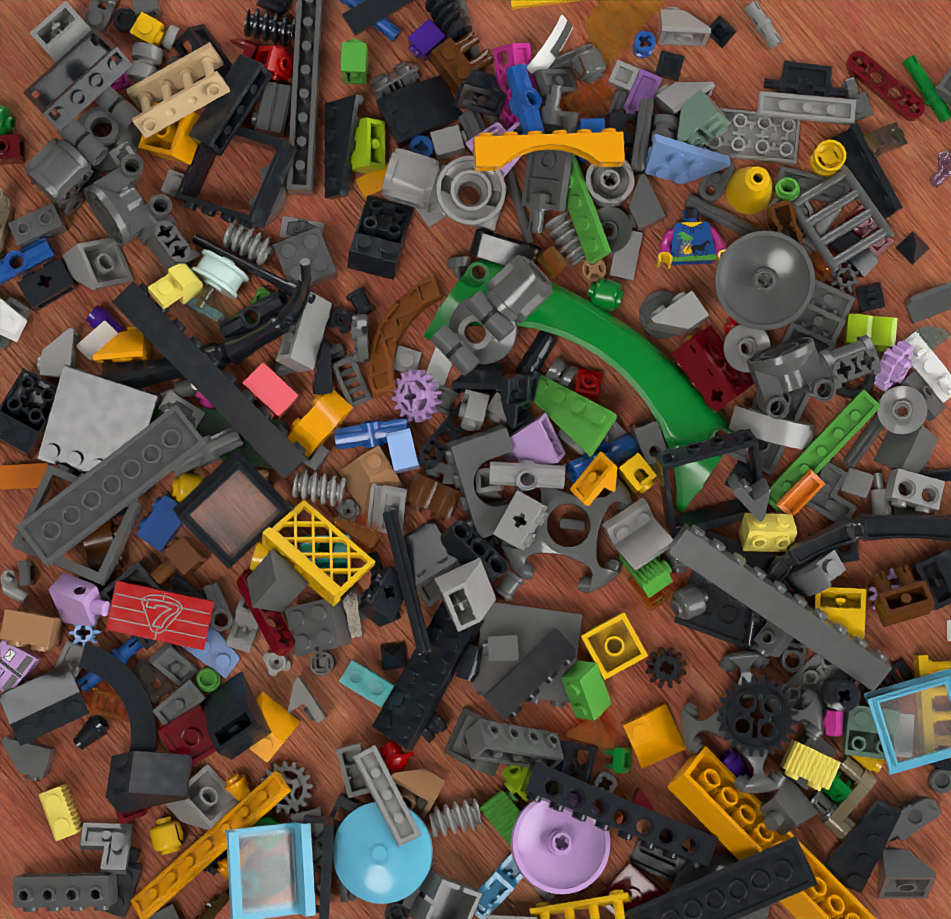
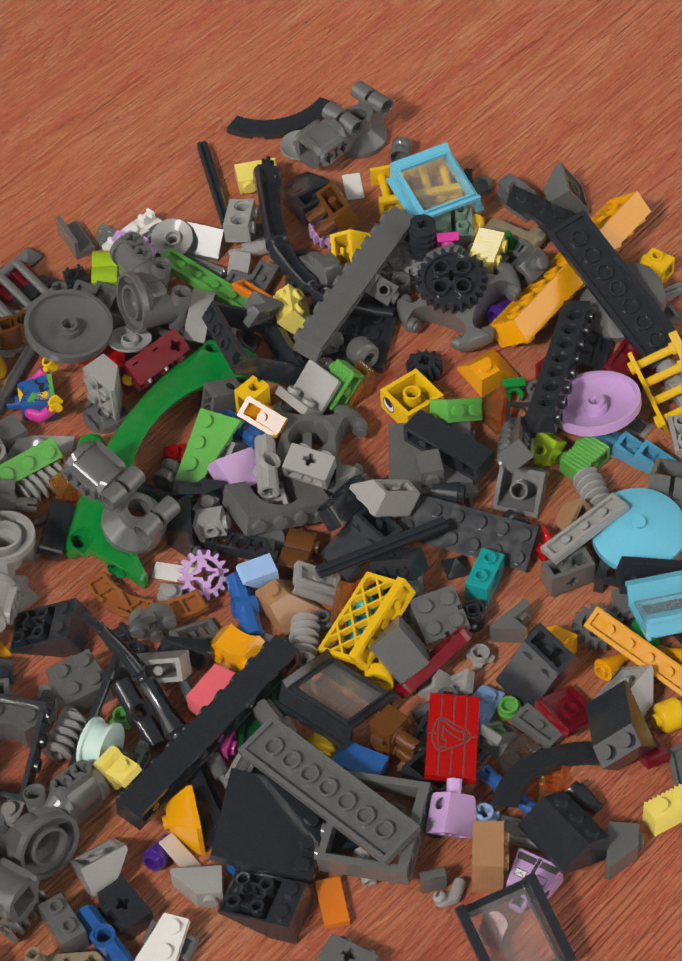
camera: 95 degrees left, 35 degrees down
(459, 265) = (72, 564): dark grey tile -> none

